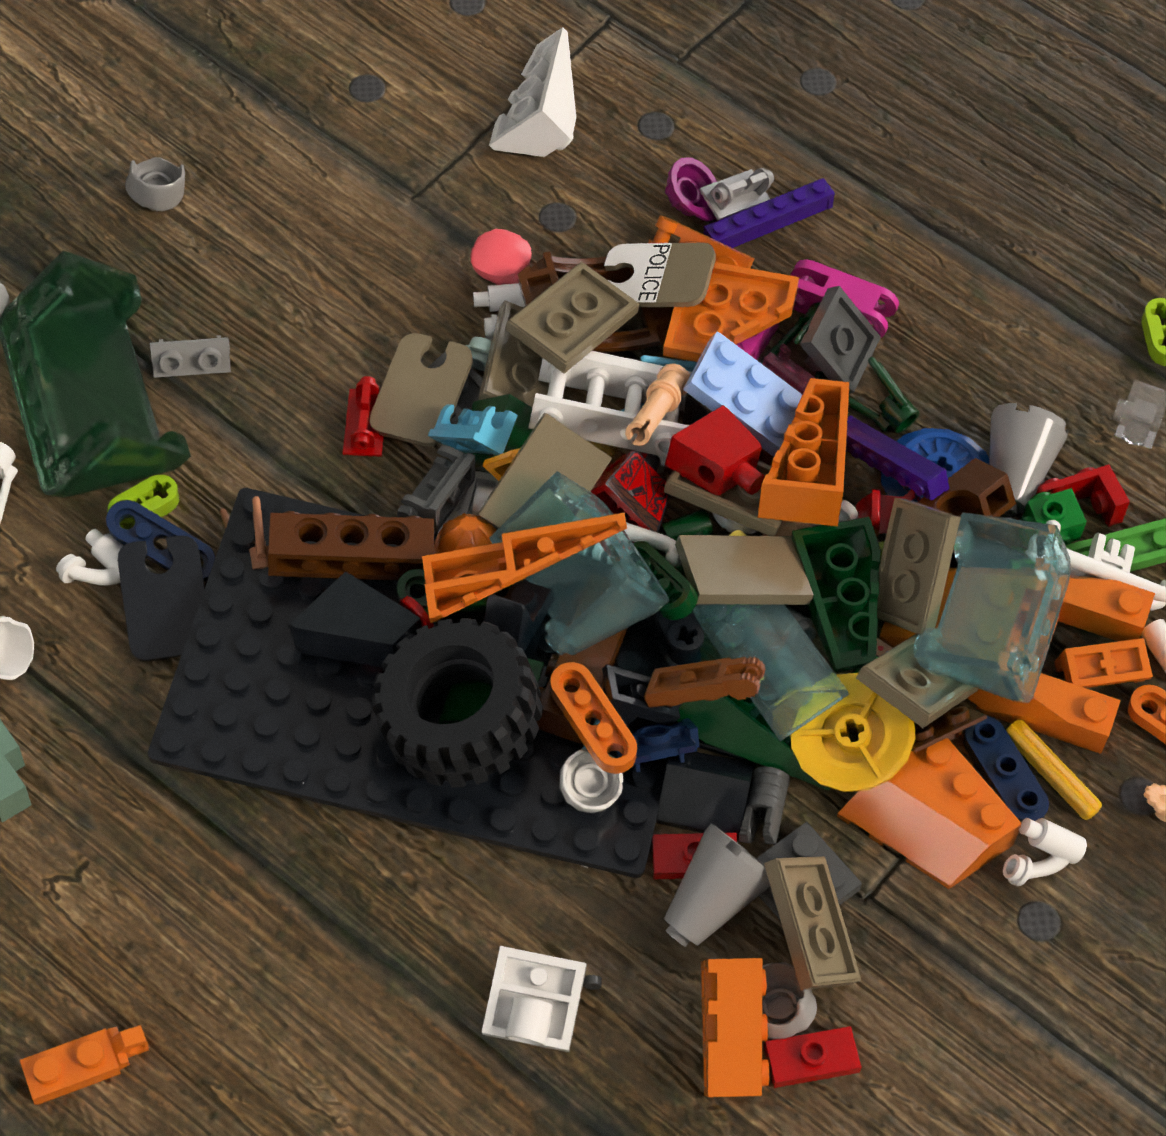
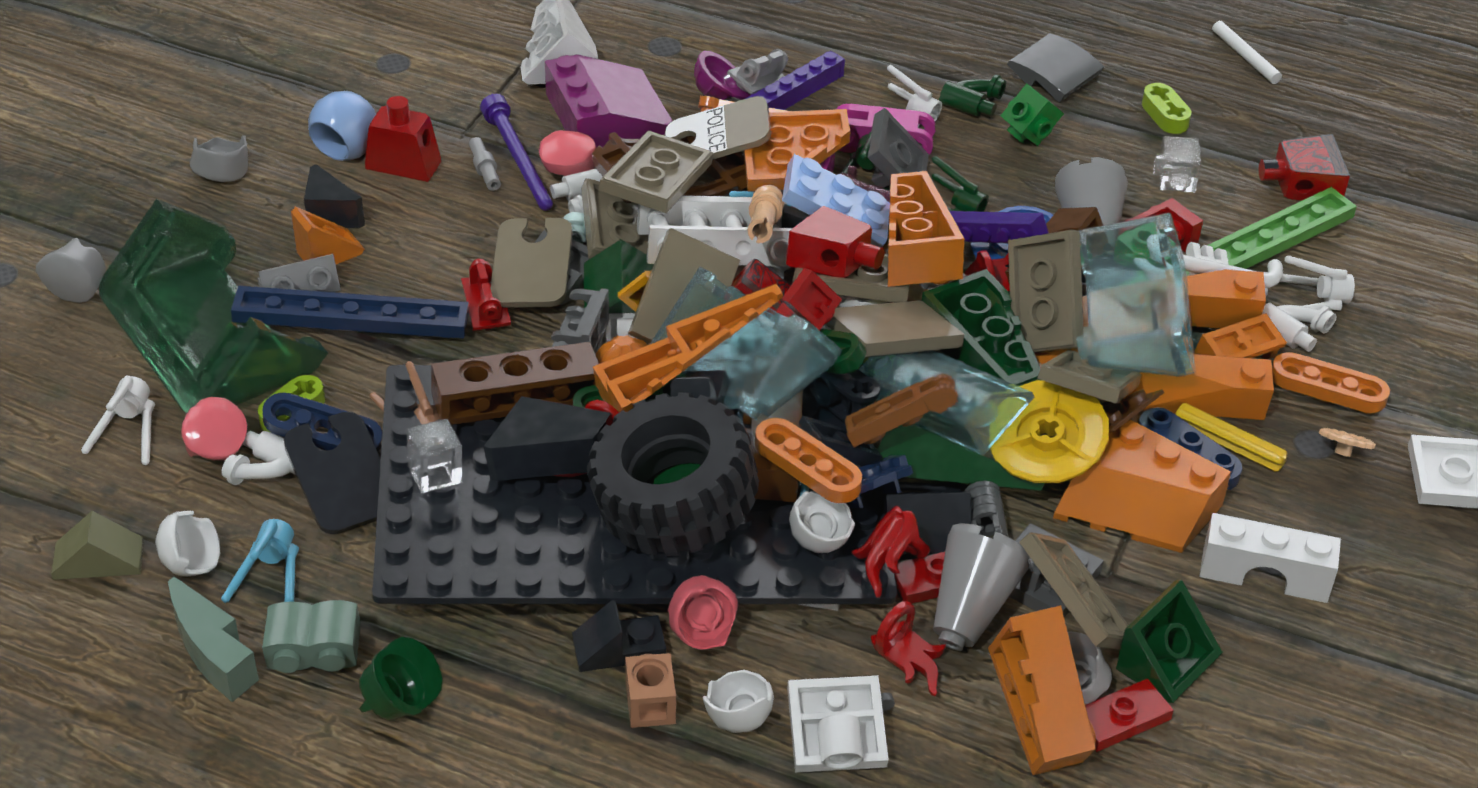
camera: 15 degrees left, 15 degrees down
(59, 522) = (214, 429): none -> coral hair
(77, 665) = (271, 546): none -> medium azure plant
(86, 776) = (311, 636): none -> sand green brick
(153, 846) = (400, 680): none -> dark green piece
(228, 408) = (351, 312): none -> dark blue plate
(229, 311) = (322, 237): none -> orange slope
(244, 617) = (434, 455): none -> clear brick
(245, 265) = (332, 199): none -> black slope
(286, 171) = (341, 125): none -> light blue helmet
(338, 209) = (402, 142): none -> red torso
(366, 853) = (607, 640): none -> black slope
(375, 932) = (650, 690): none -> nougat brick
(417, 247) = (484, 163): none -> light grey bar
(449, 181) = (497, 112): none -> dark purple piece
(449, 848) = (703, 612): none -> coral hair
(452, 949) = (739, 701): none -> white hair
(476, 430) = (611, 273): medium azure hinge -> none
(567, 193) = (603, 98): none -> magenta slope
(632, 929) = (905, 648): none -> red piece
(647, 821) = (889, 542): none -> red piece
(660, 530) = (810, 299): none -> red bracket
(885, 997) = (1168, 643): none -> dark green slope
(894, 273) = (921, 100): none -> white plant
(944, 269) = (967, 95): none -> dark green plant
(1005, 316) = (1031, 115): none -> green brick
(1051, 838) = (1264, 486): white plant -> none
(1054, 935) = (1301, 556): none -> white arch
(1064, 248) = (1056, 65): none -> slope

